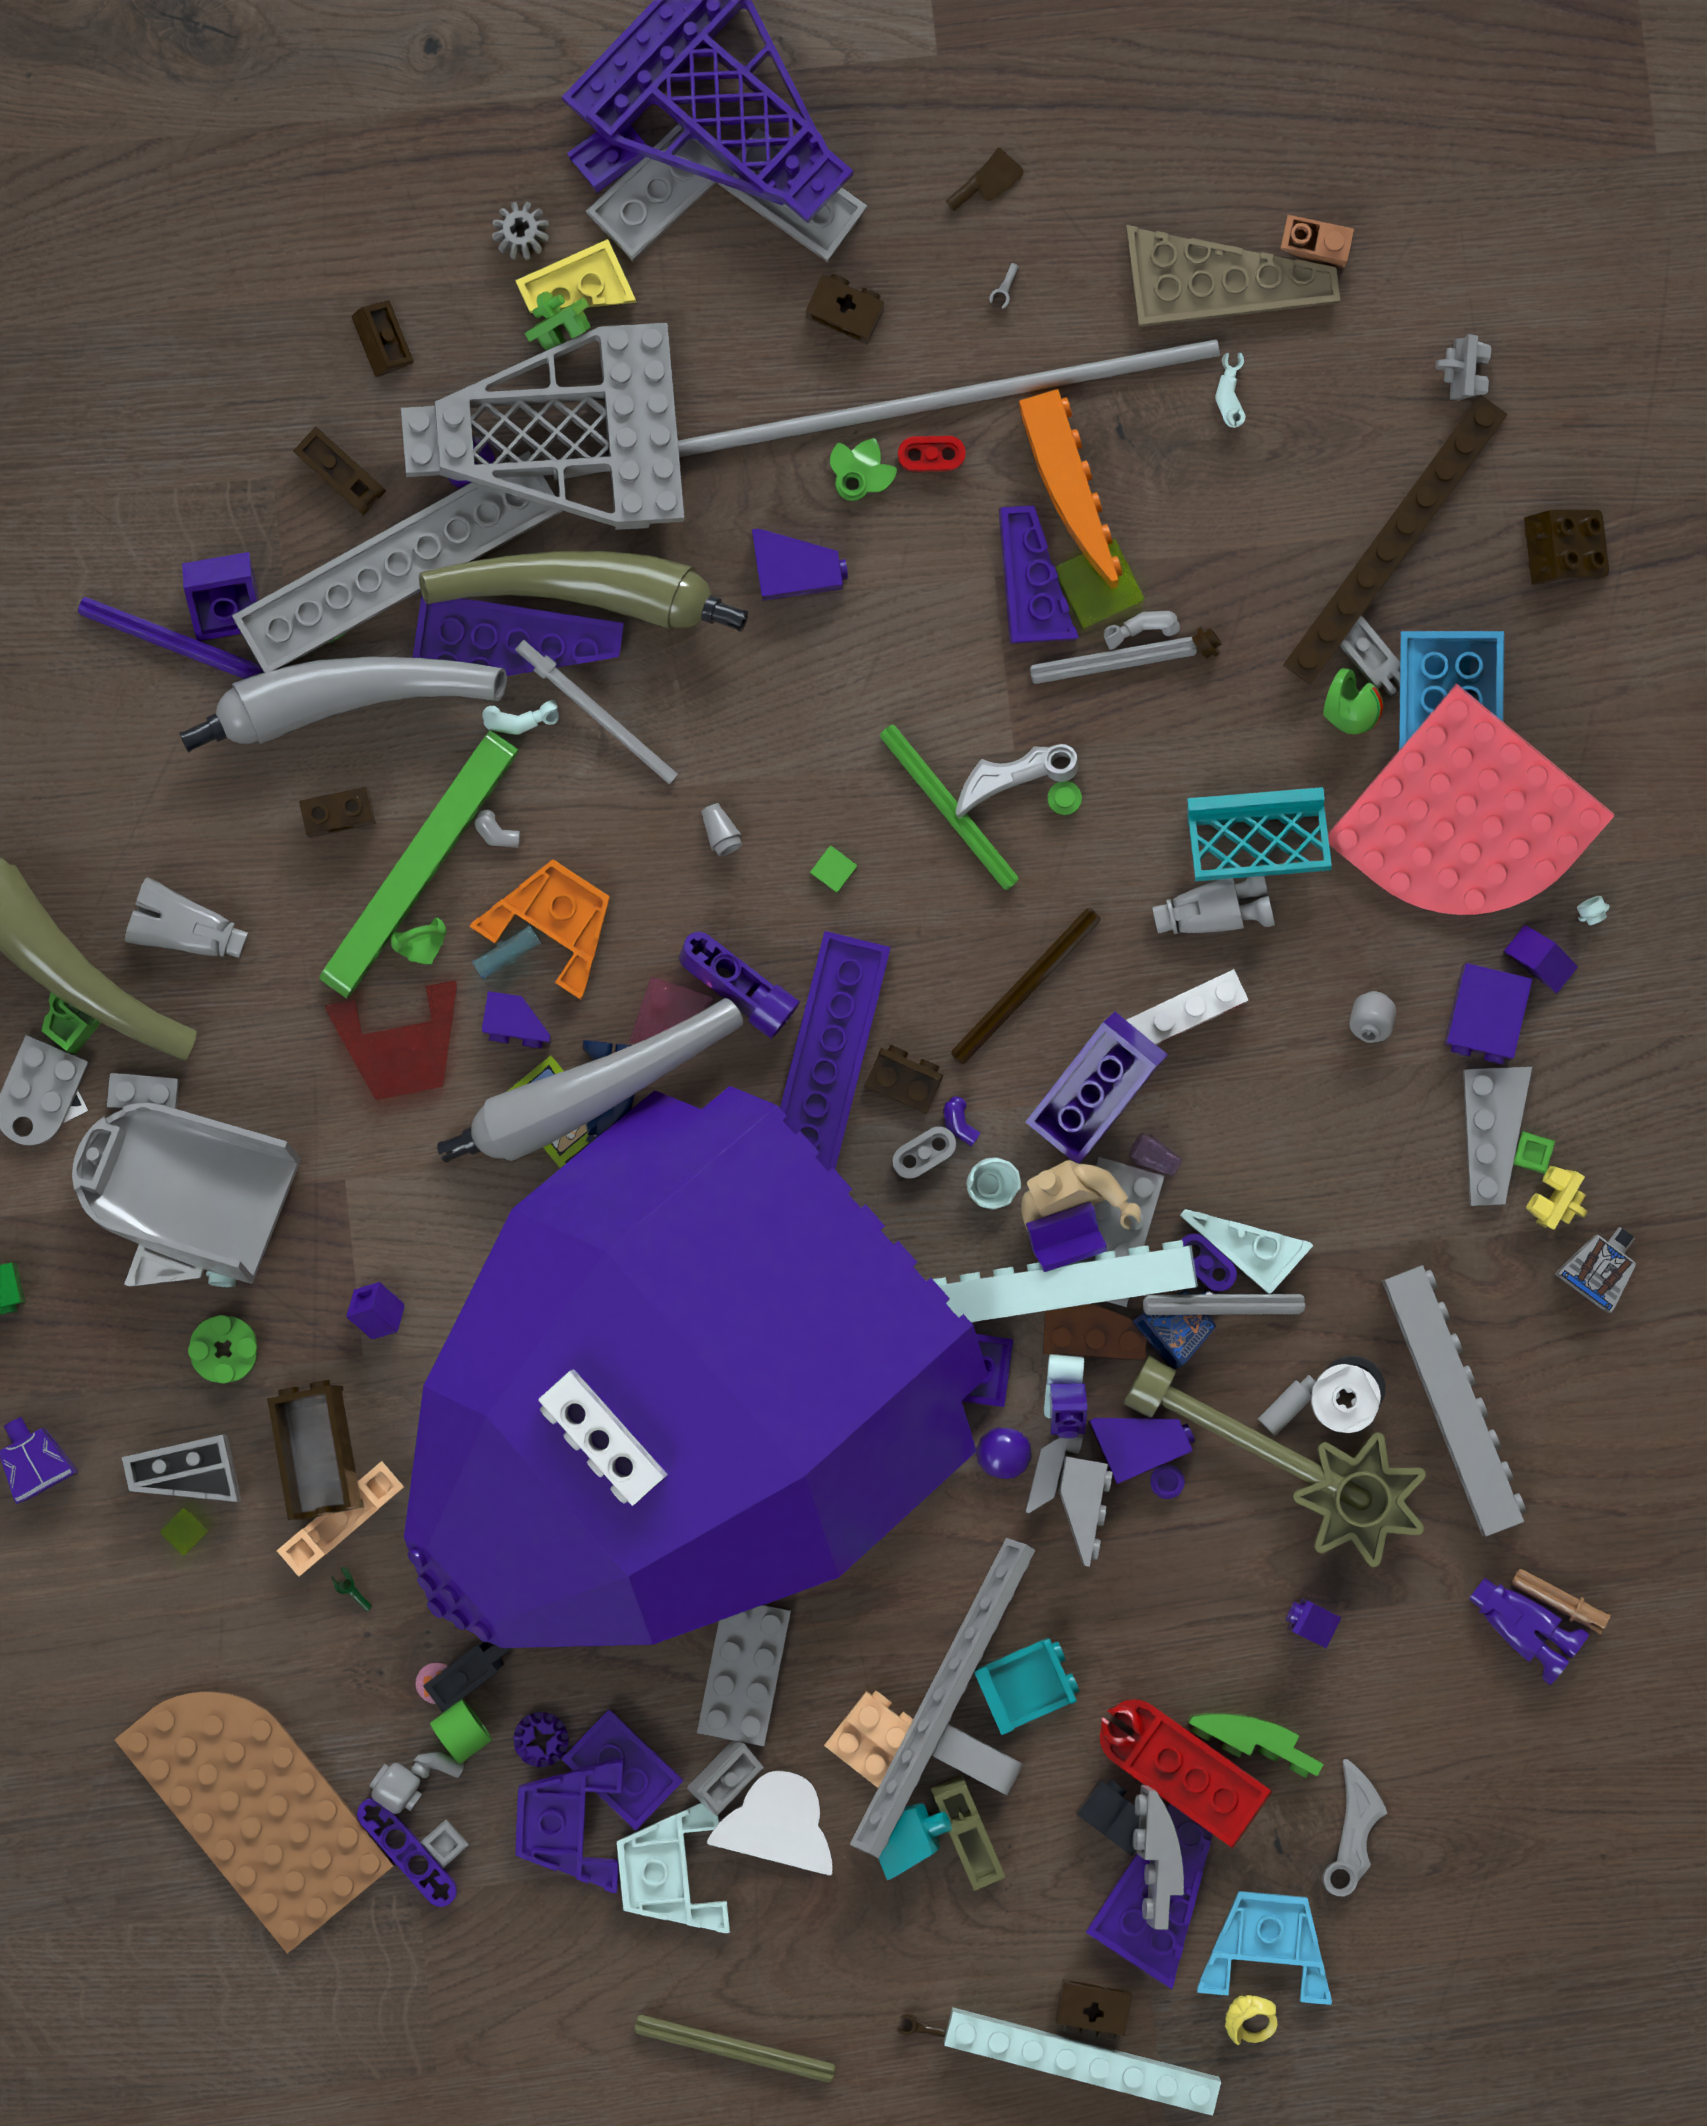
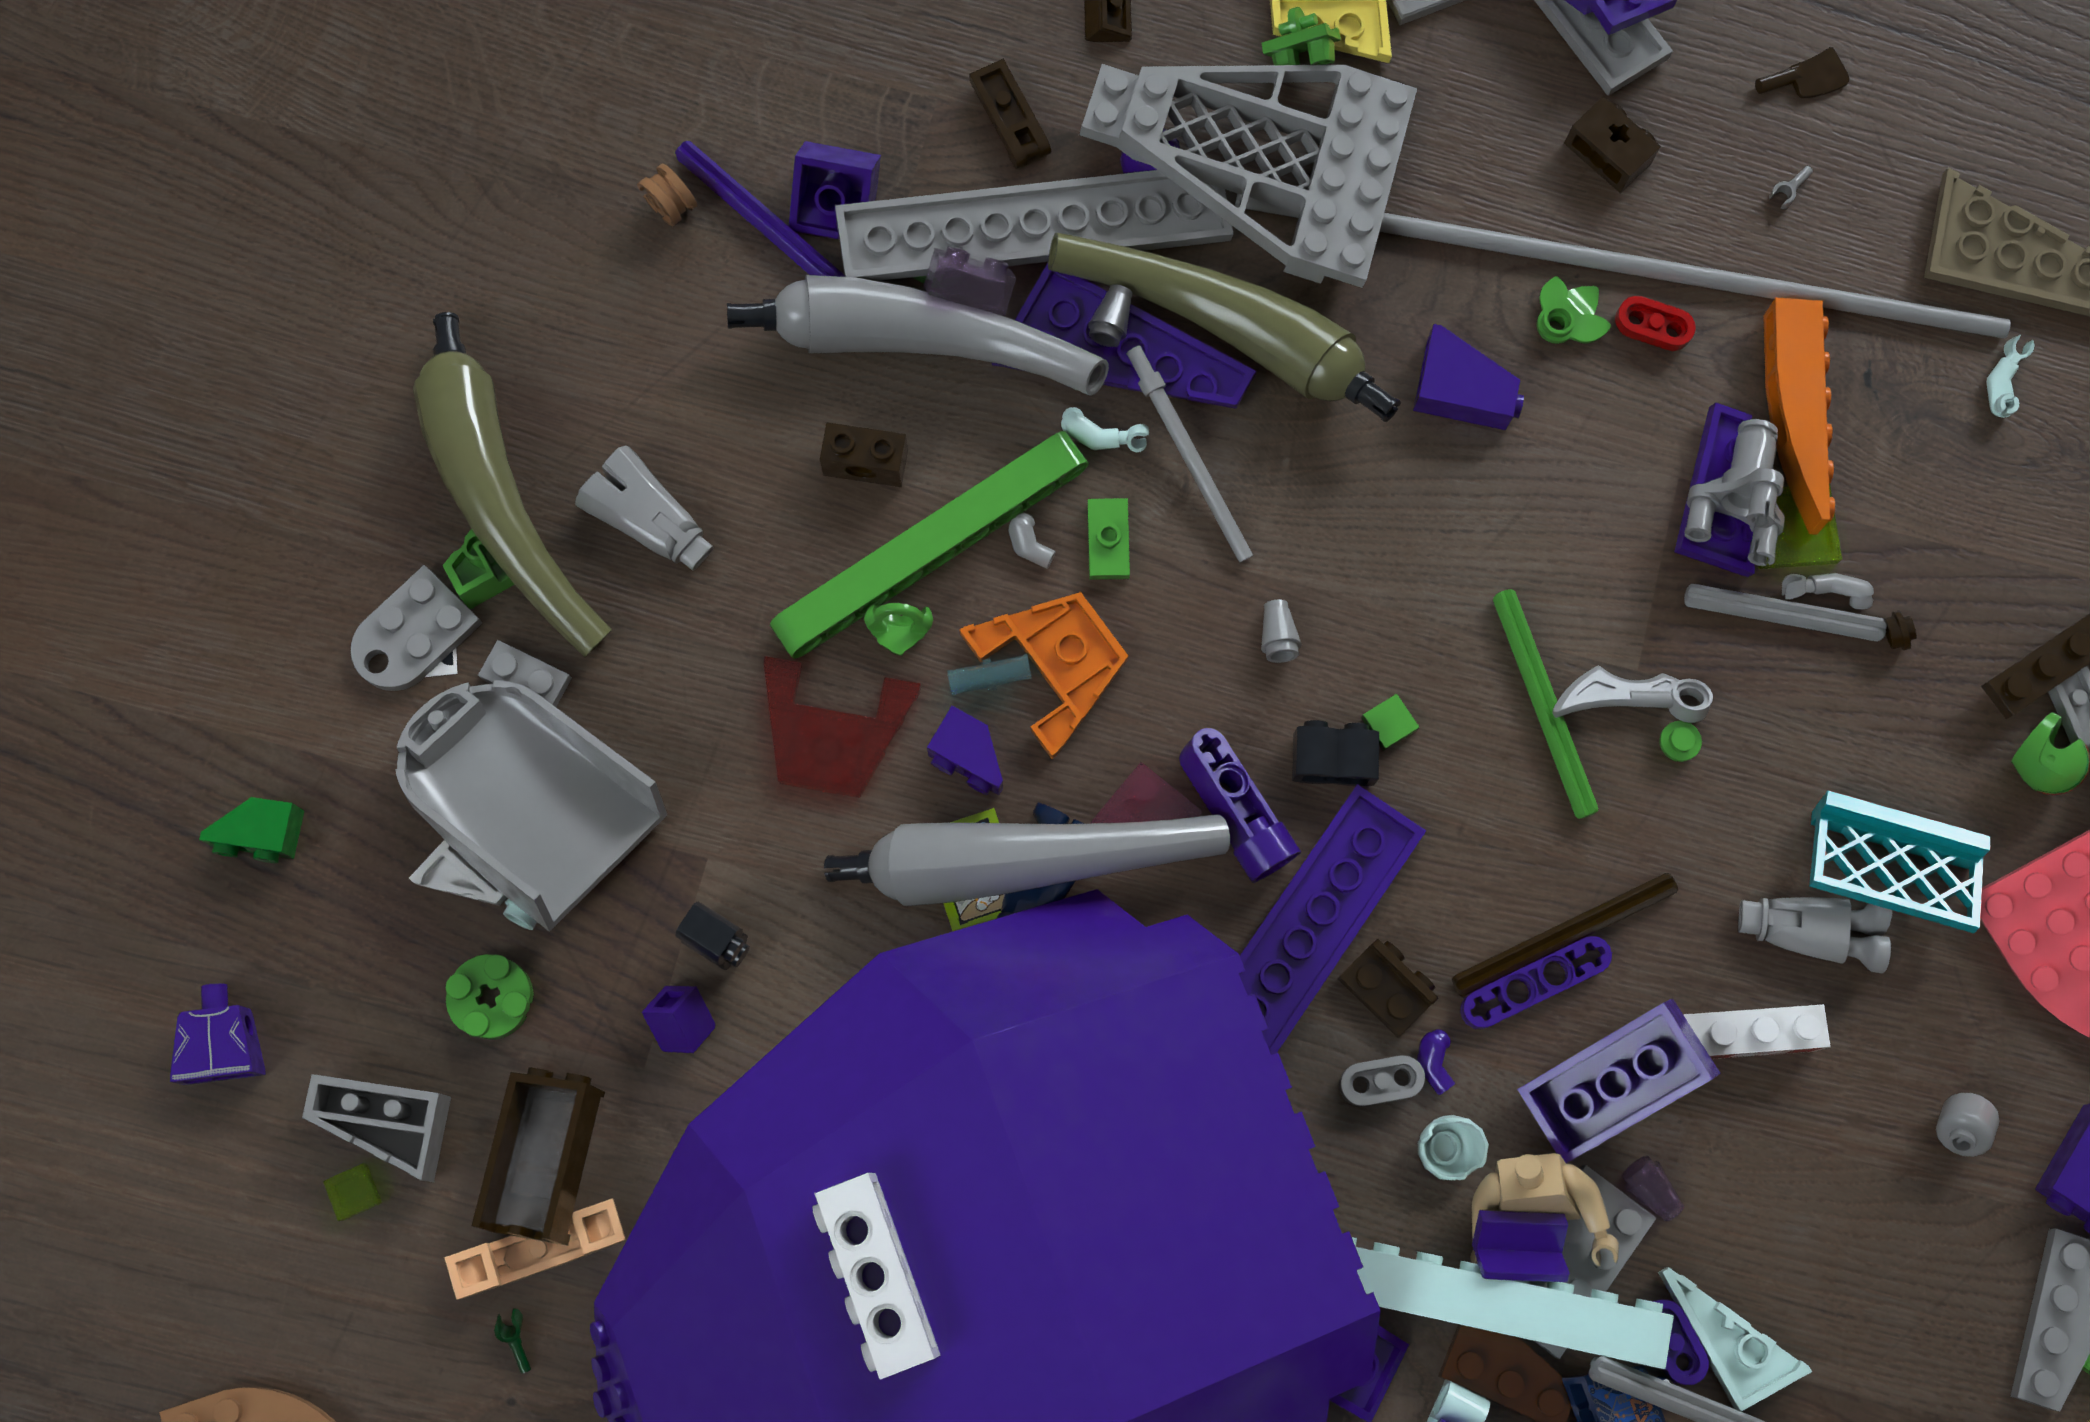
camera: 20 degrees right, 10 degrees down
(88, 653) = (667, 194): none -> medium nougat wheel
(366, 640) = (970, 281): none -> clear purple brick
(377, 1240) = (713, 936): none -> black brick
(491, 624) = (1111, 317): none -> flat silver cone
(557, 804) = (1108, 539): none -> bright green plate
(799, 913) = (1335, 755): none -> black brick
(1016, 1032) = (1537, 985): none -> dark purple beam
(1045, 580) = (1744, 492): none -> light grey wheel

